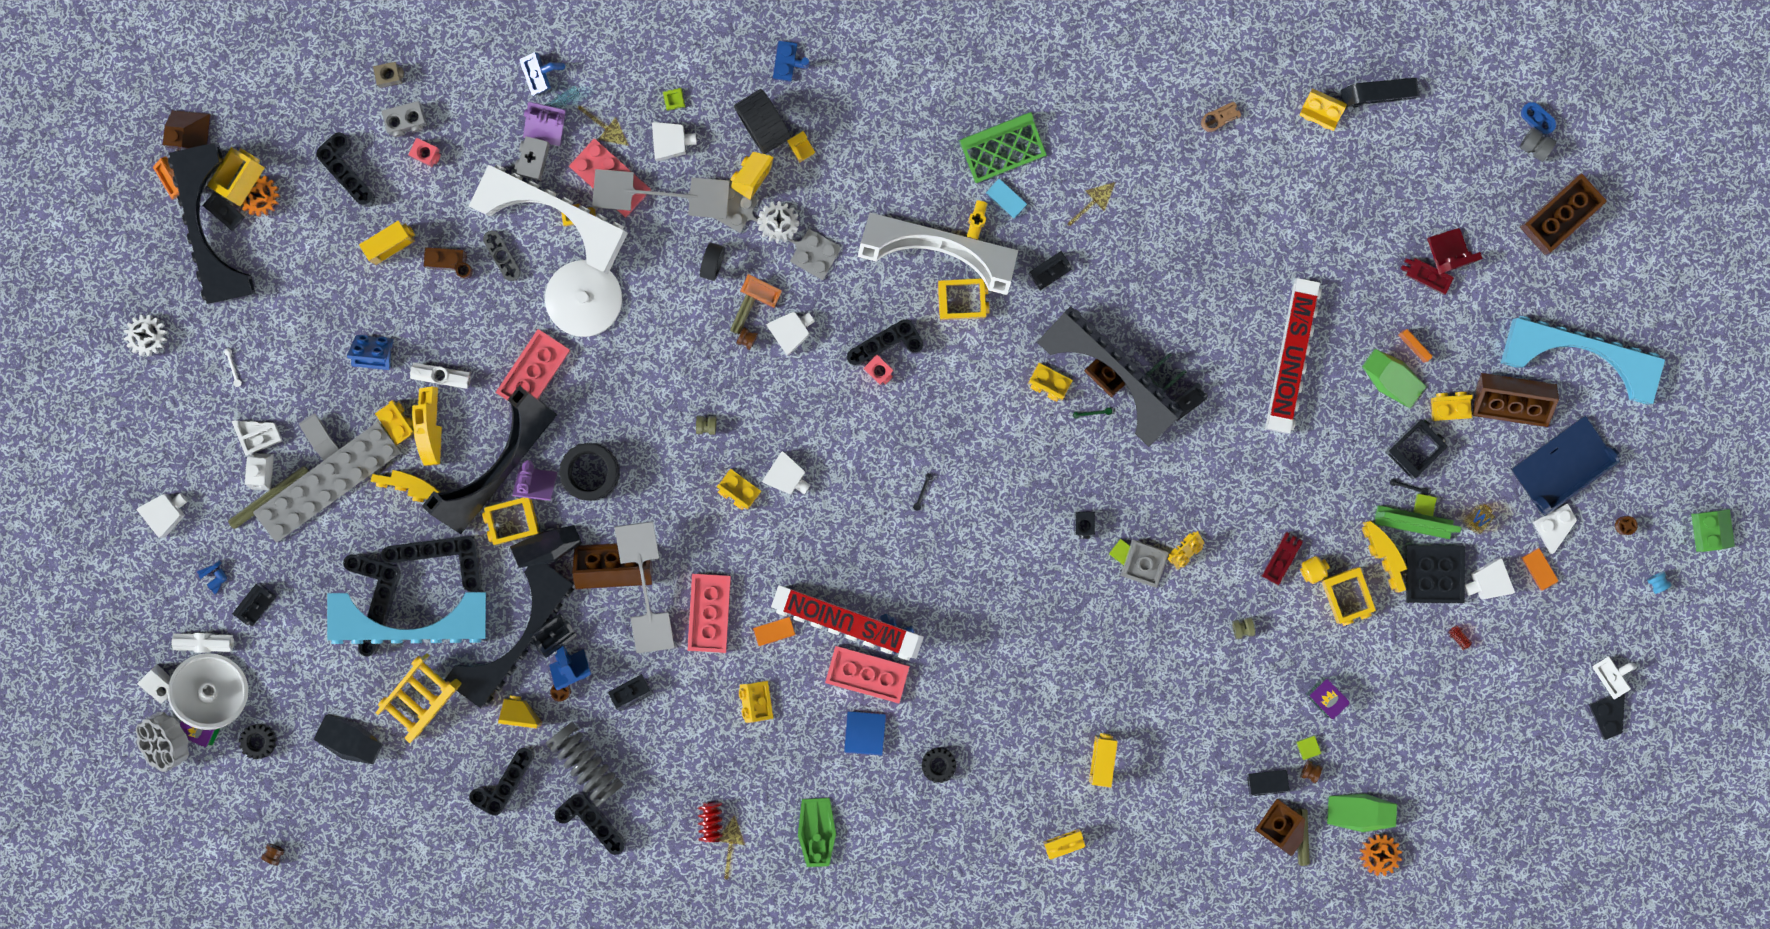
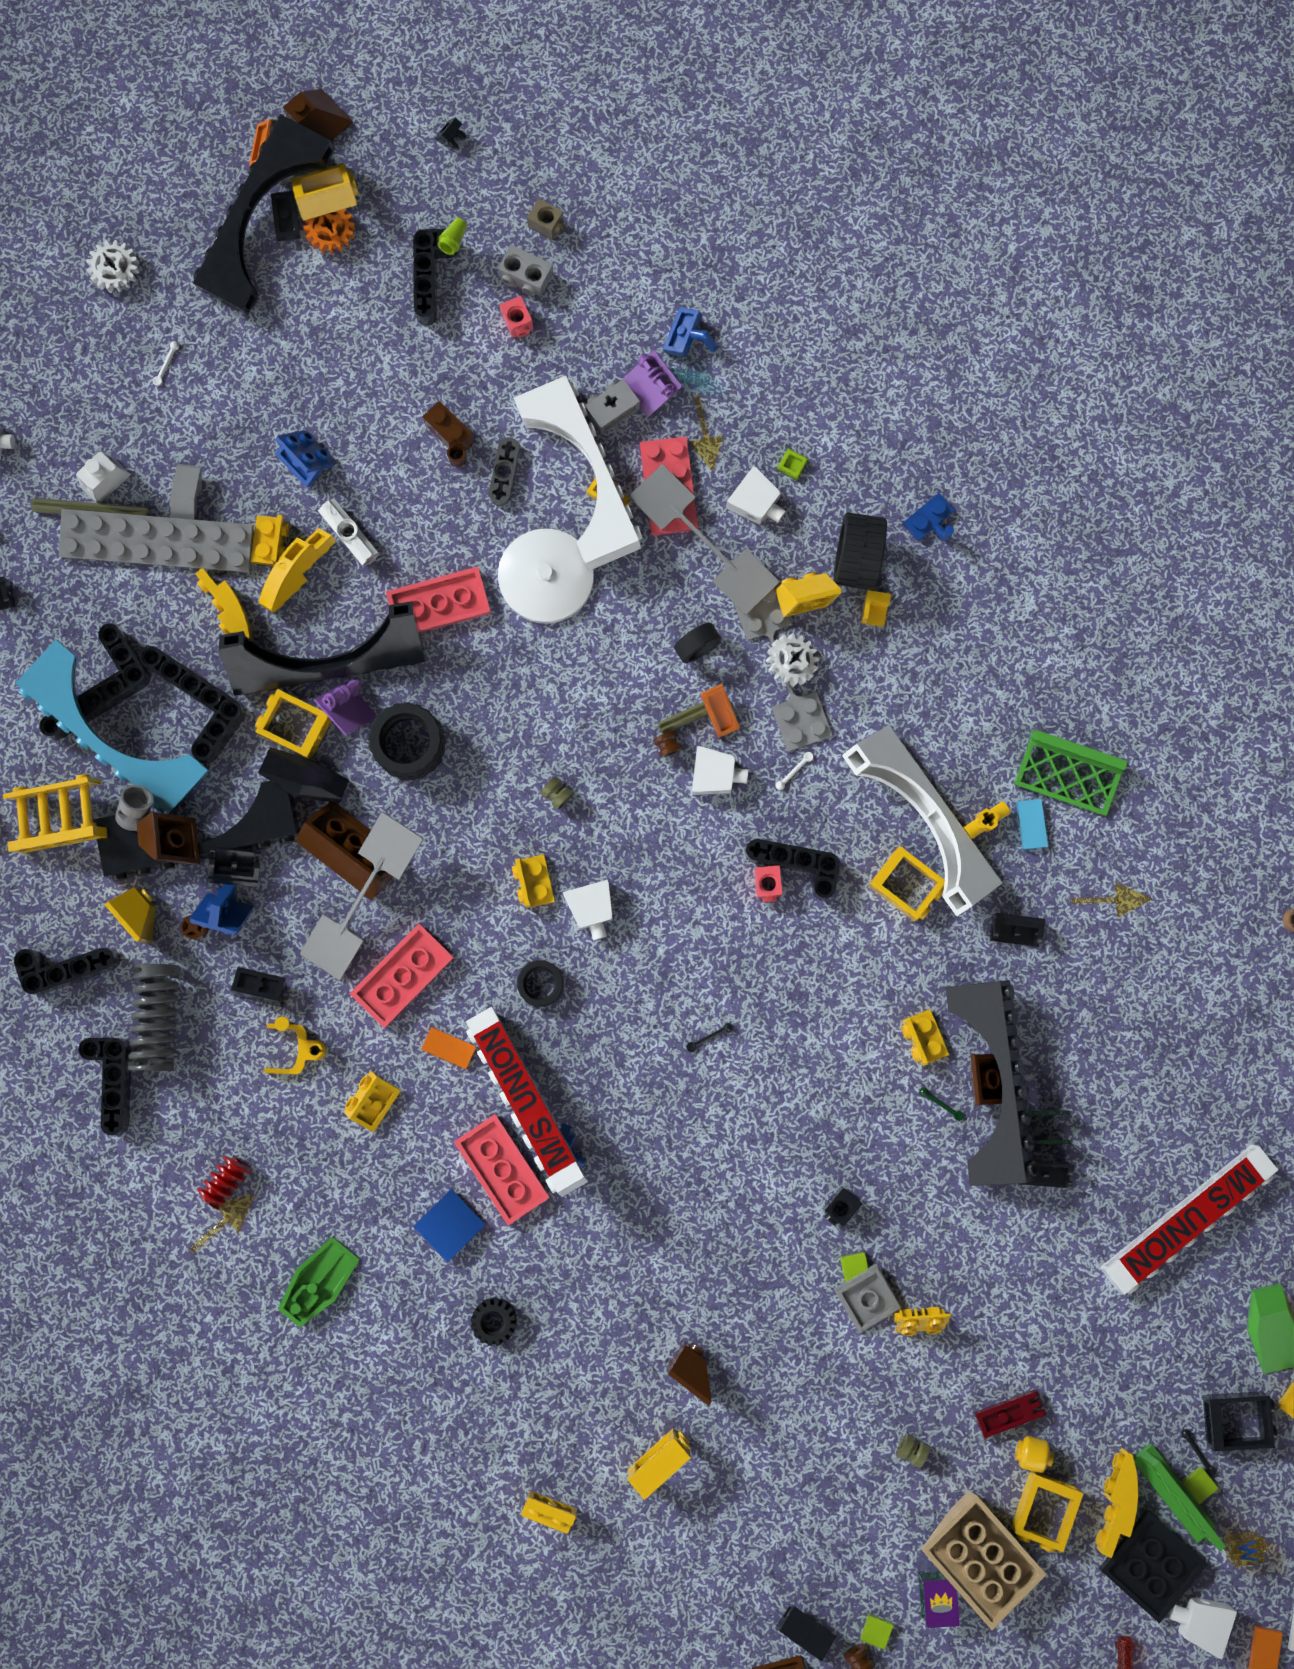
camera: 45 degrees right, 5 degrees down
(256, 435) = (130, 443): white wing -> none
(277, 69) = (449, 130): none -> black tile
(342, 136) = (452, 236): none -> lime cone
(387, 242) = (408, 367): yellow window -> none
(462, 652) = (133, 806): none -> light grey wheel
(500, 652) = (169, 838): none -> reddish brown slope
(688, 703) = (304, 1047): none -> yellow piece
(795, 561) = (523, 975): none -> black tyre
(838, 273) = (780, 785): none -> white hinge
(1077, 693) = (690, 1370): none -> reddish brown slope
(1333, 654) = (982, 1560): none -> tan slope

